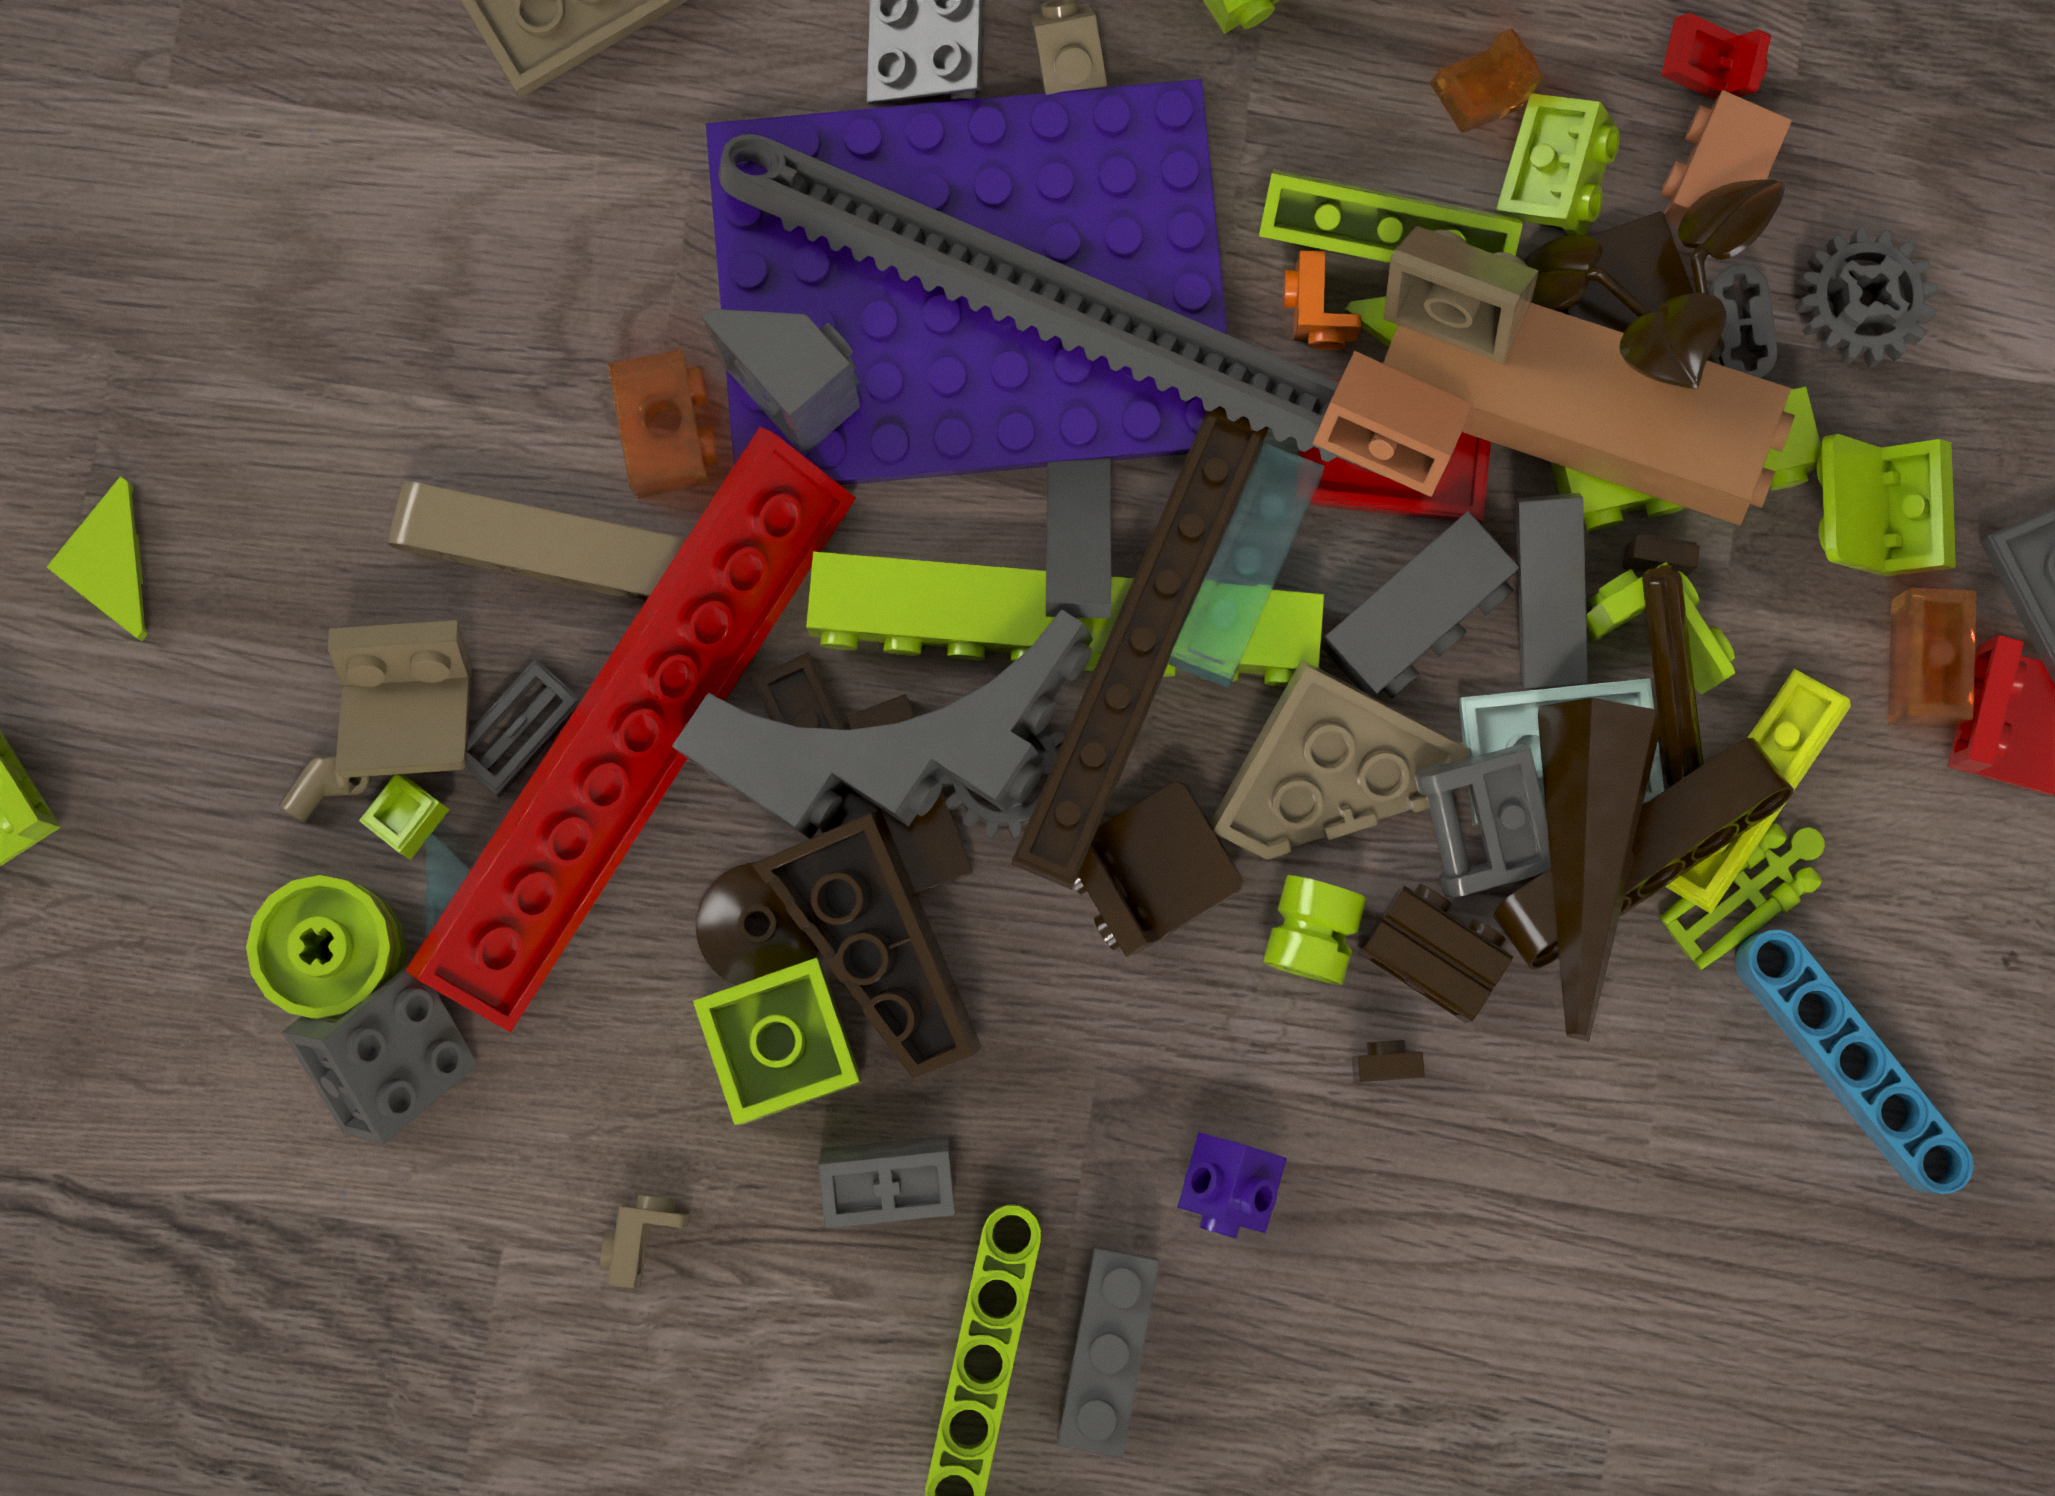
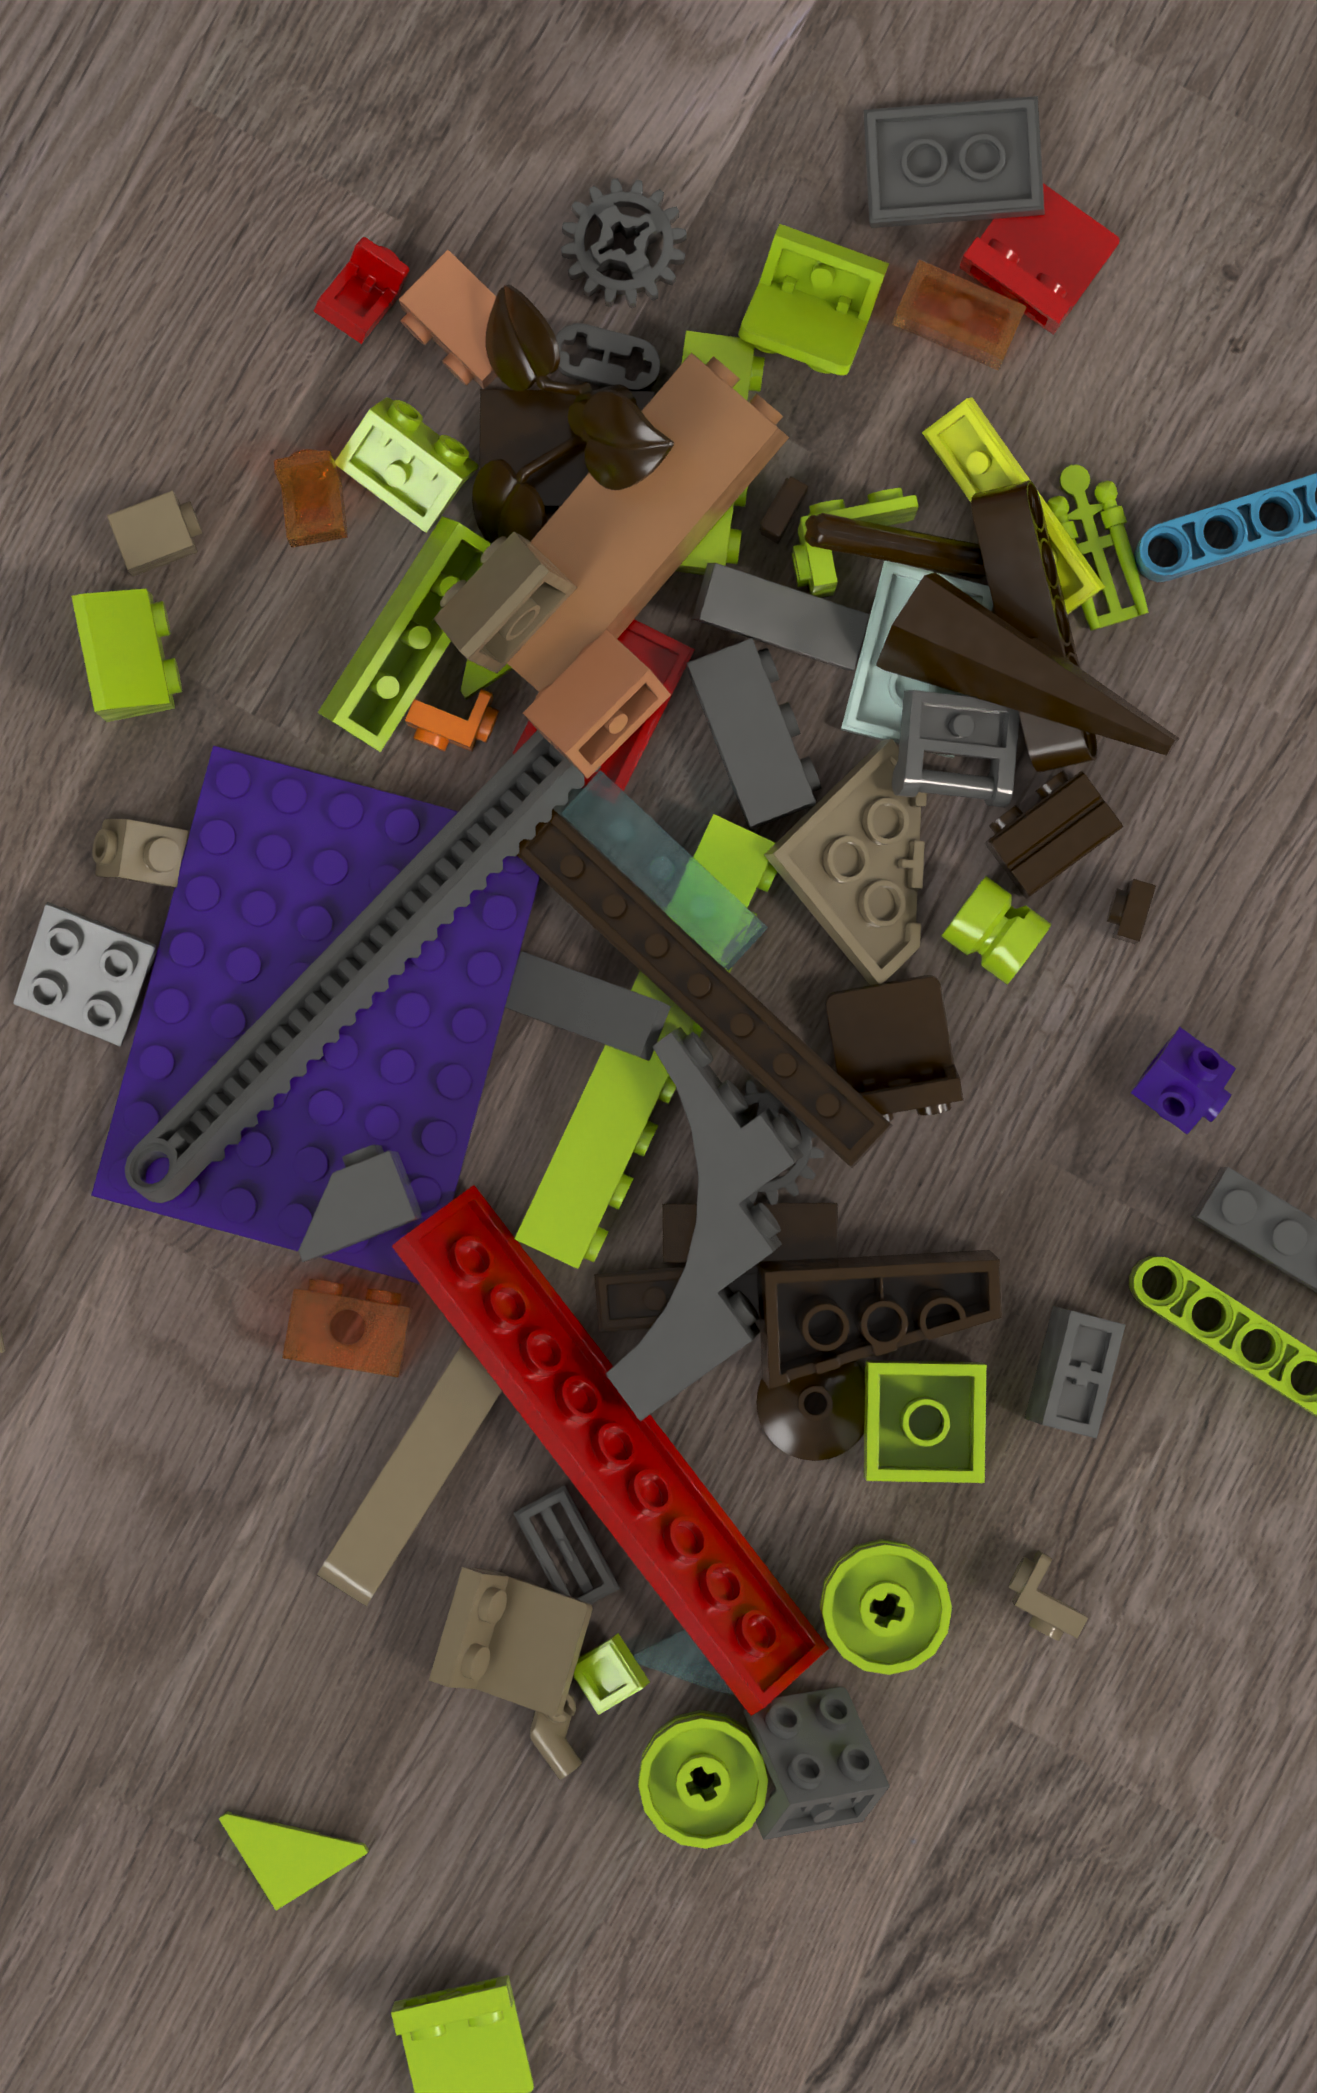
camera: 70 degrees left, 5 degrees up
(533, 1066) = (891, 1641): none -> lime wheel

